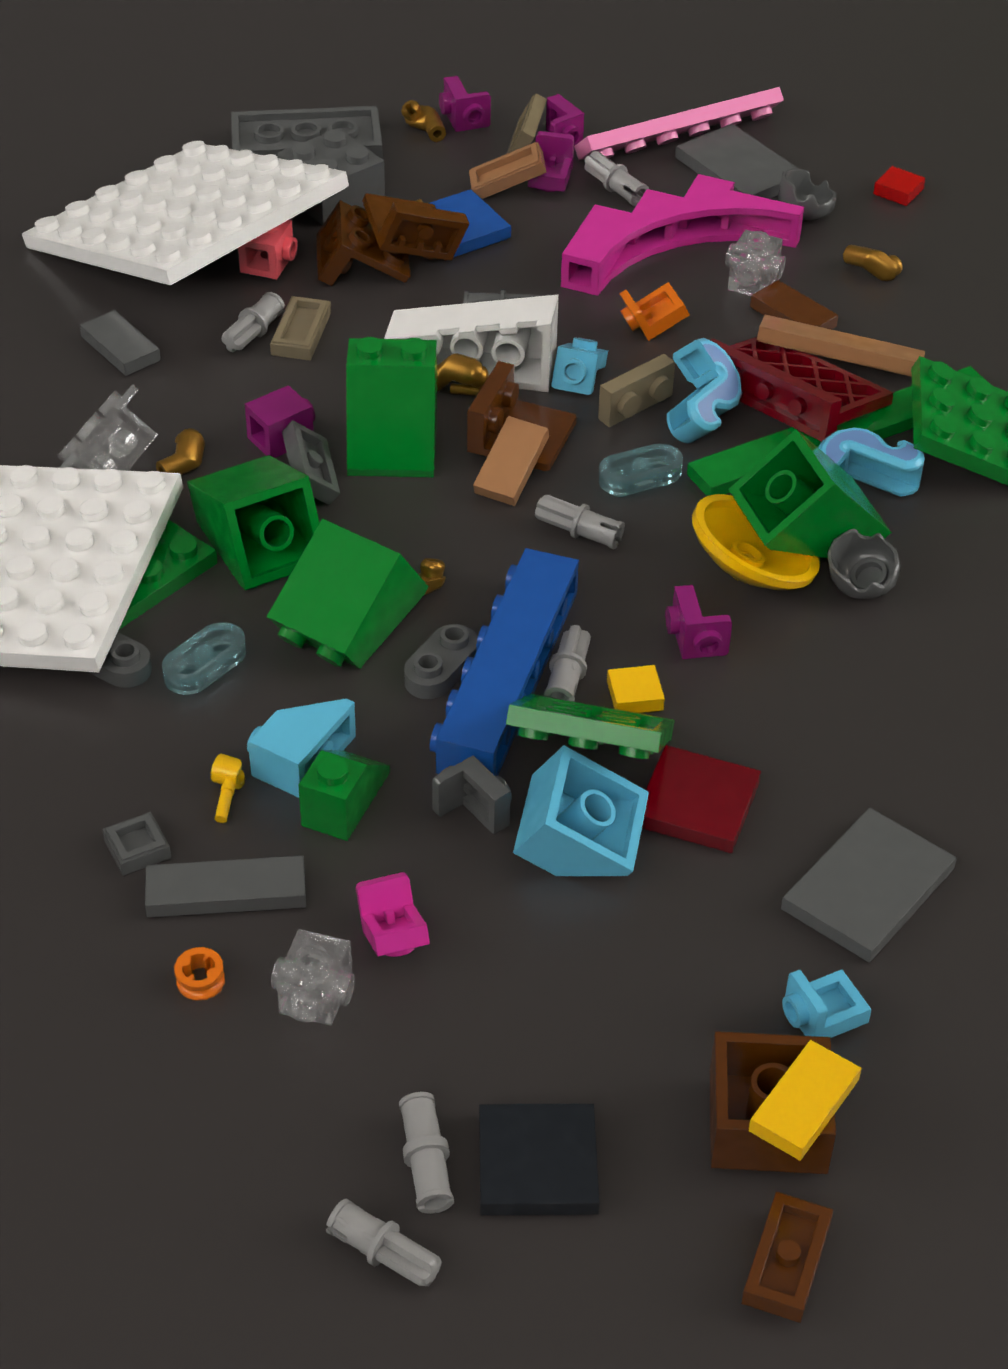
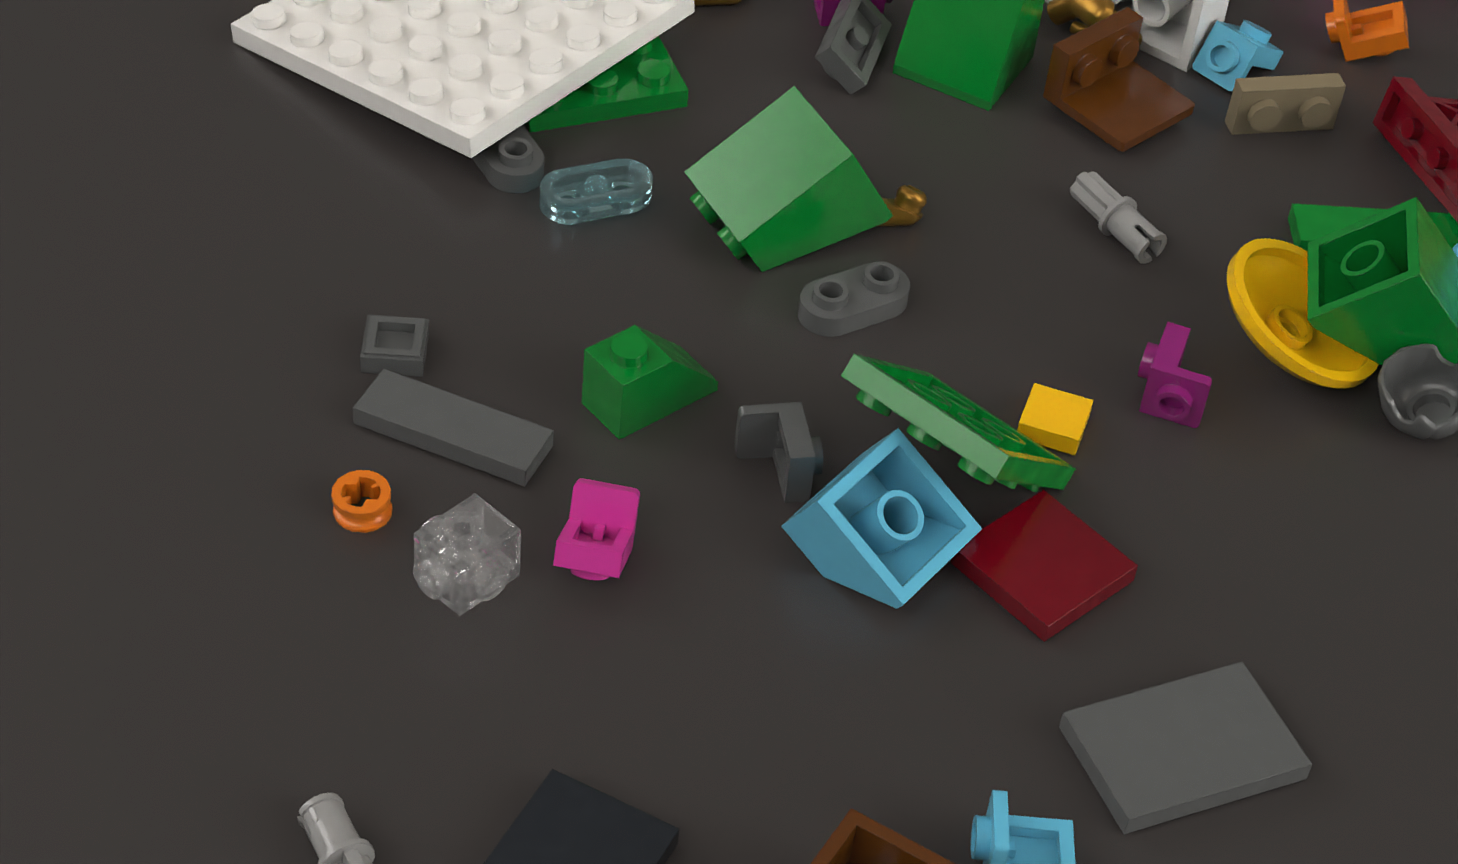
camera: 25 degrees right, 0 degrees up
(228, 772) = (538, 319): yellow hand -> none
(256, 517) = (747, 64): green slope -> none
(294, 737) = (629, 298): medium azure slope -> none
(426, 1152) = (458, 791): light grey pin -> none
(507, 660) = (927, 322): blue brick -> none
(511, 461) = (1081, 122): medium nougat tile -> none
(568, 664) = (993, 359): light grey axle -> none
(640, 469) = (1229, 189): clear light blue plate -> none
(716, 390) = (1380, 139): medium azure animal -> none

